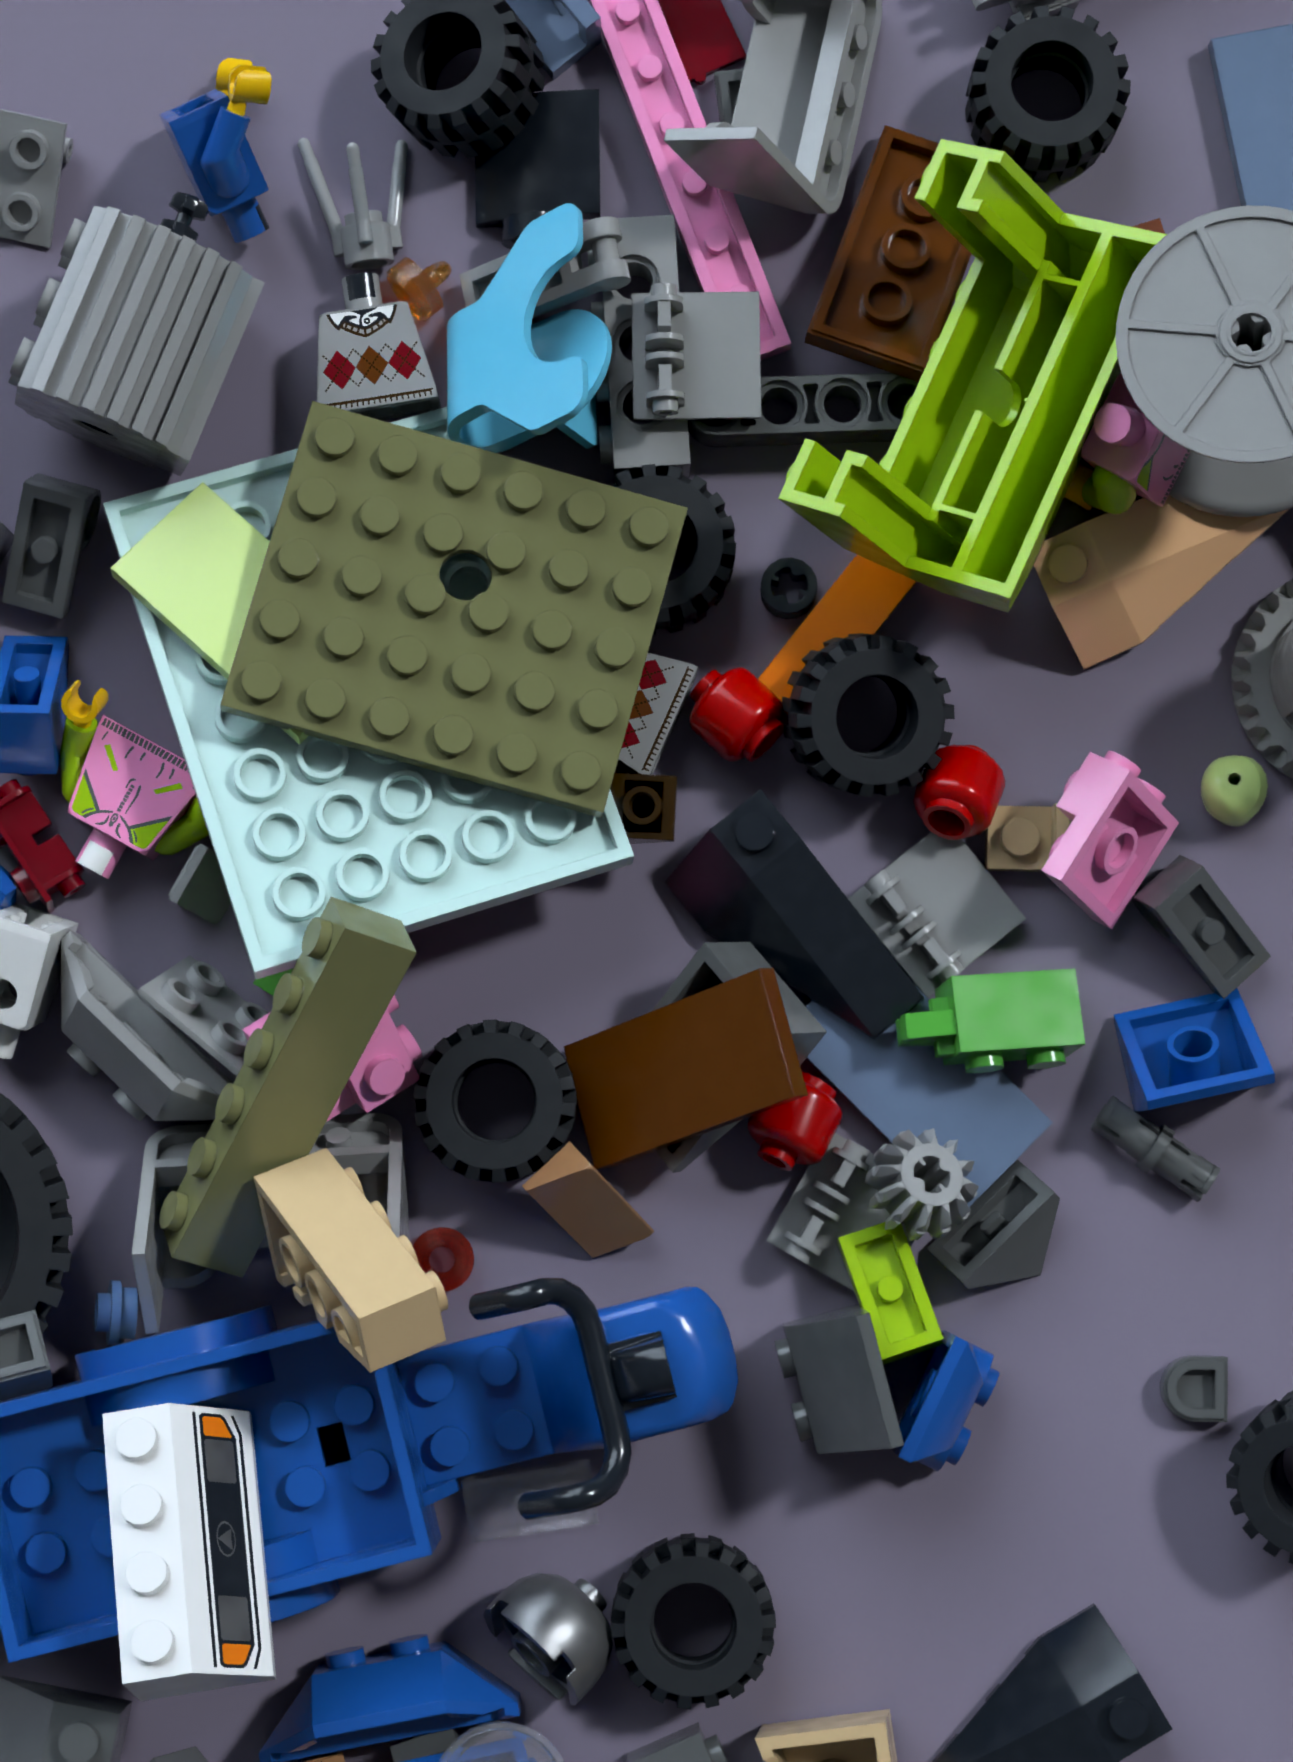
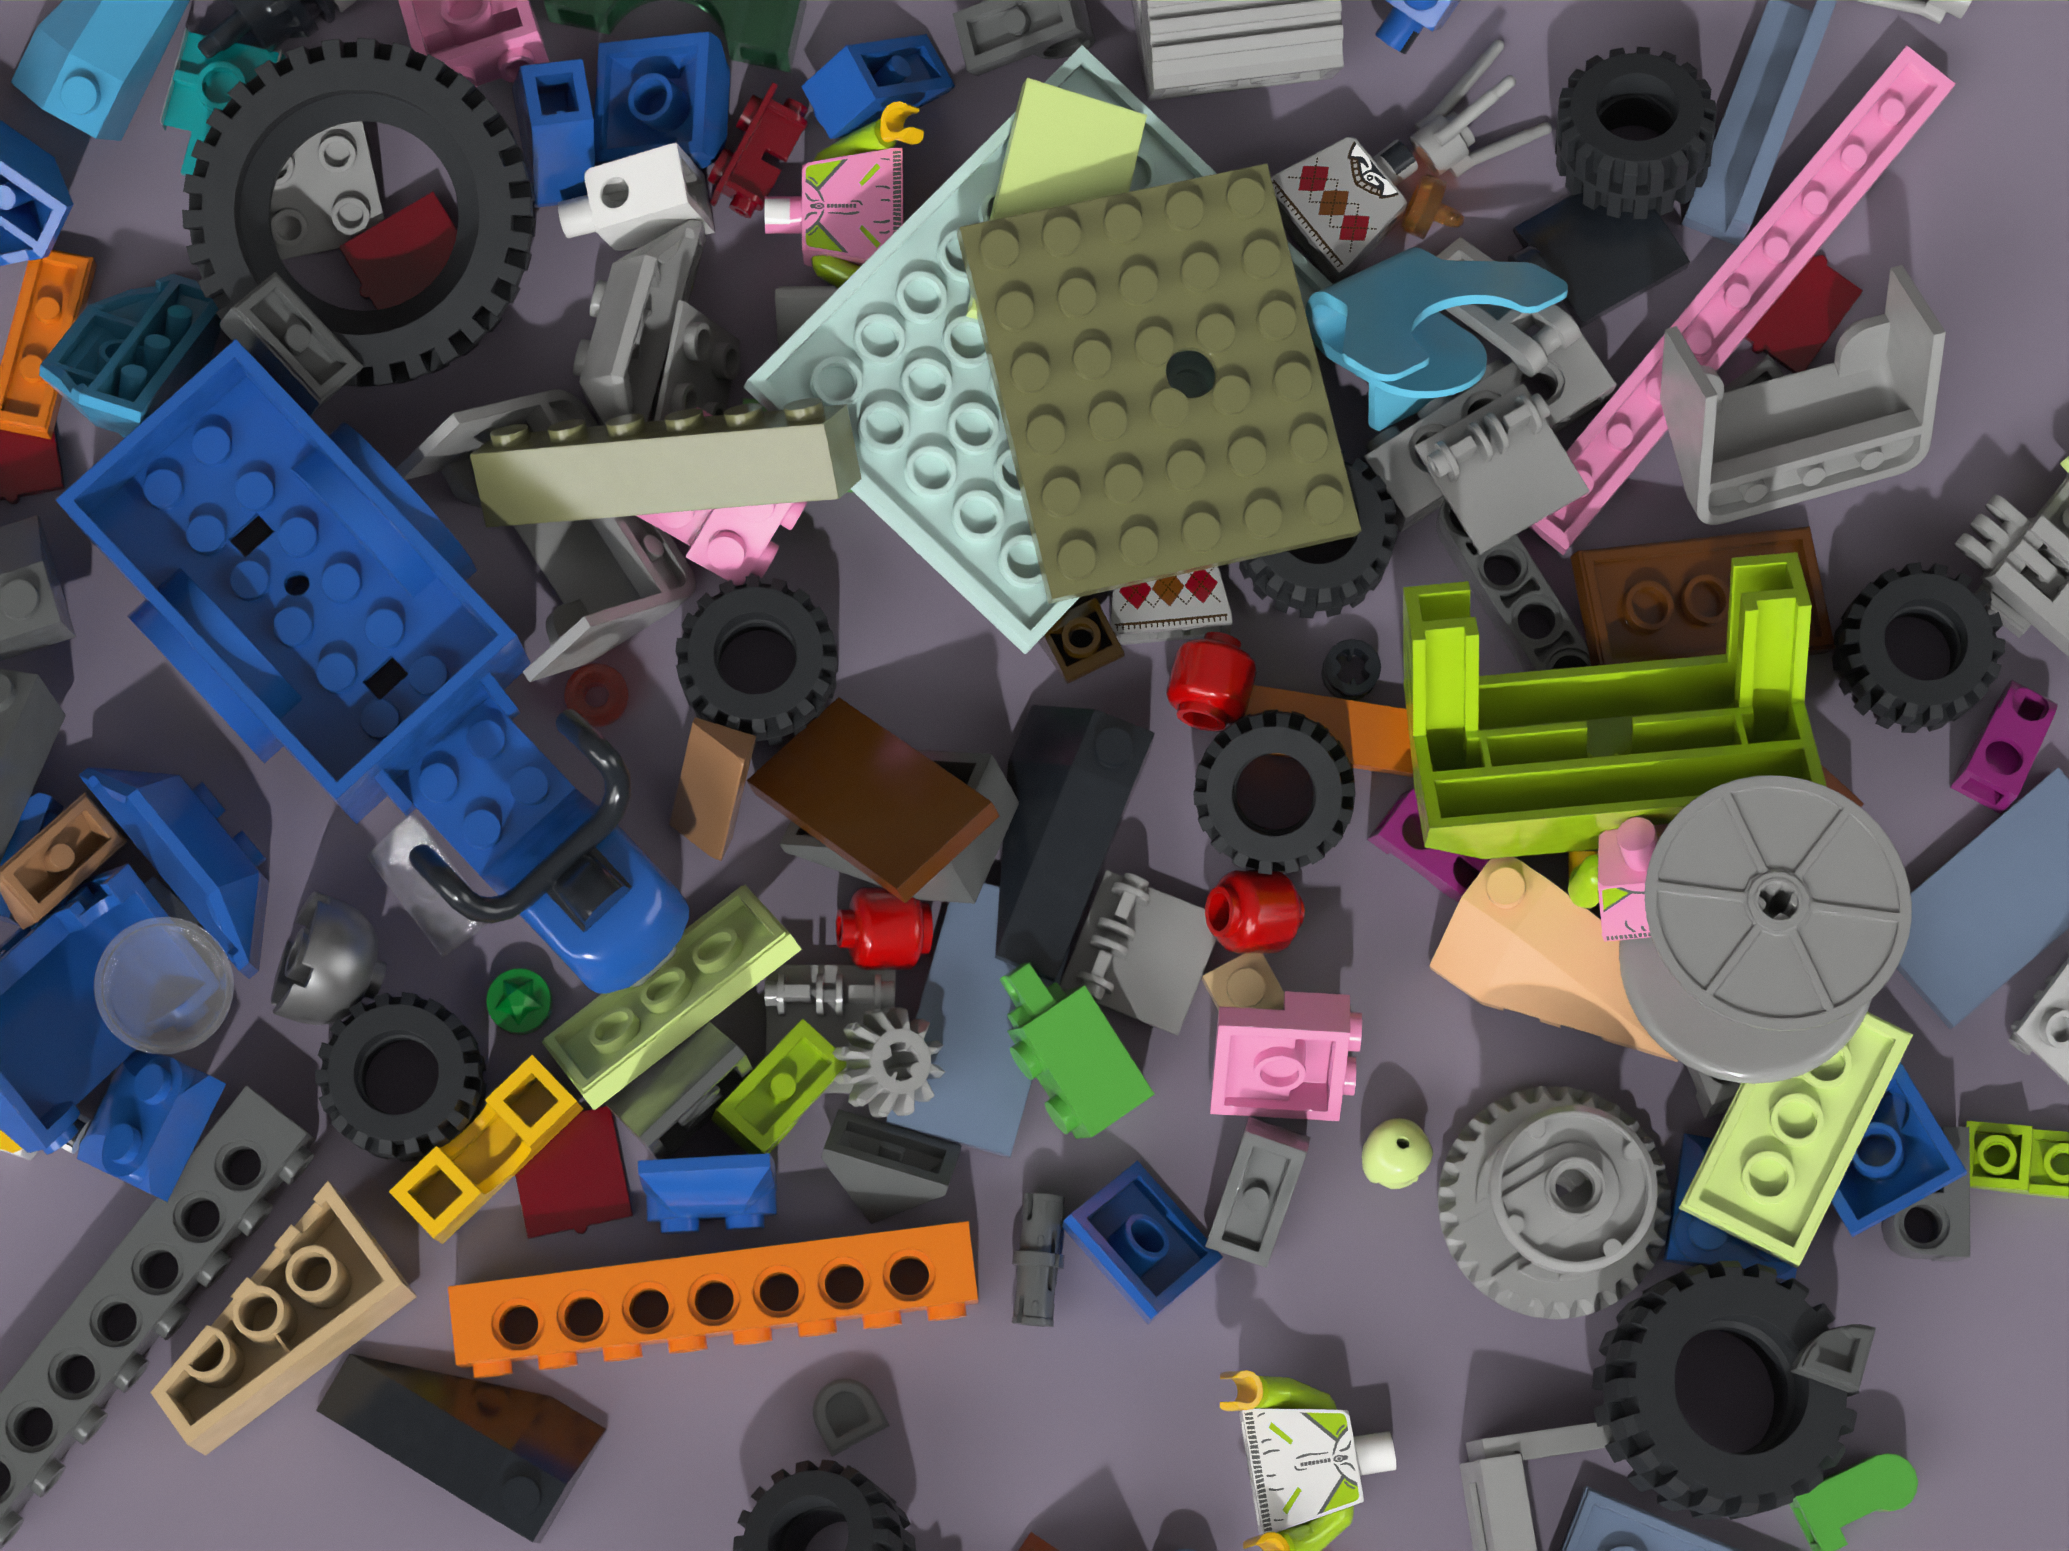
camera: 60 degrees right, 5 degrees down
(116, 1312) = (399, 442): medium blue plate -> none
(187, 1550) = (229, 591): white slope -> none
(349, 1261) = (548, 589): tan wedge -> none
(678, 1477) = (519, 1001): none -> green tile
(751, 1277) = (637, 1026): none -> yellowish green tile
(800, 1581) = (477, 1163): none -> yellow arch
(851, 1514) = (575, 1178): none -> dark red piece
(961, 623) = (1403, 837): none -> magenta leg
(977, 1671) = (482, 1307): none -> orange brick
(1171, 71) = (2005, 748): none -> magenta leg

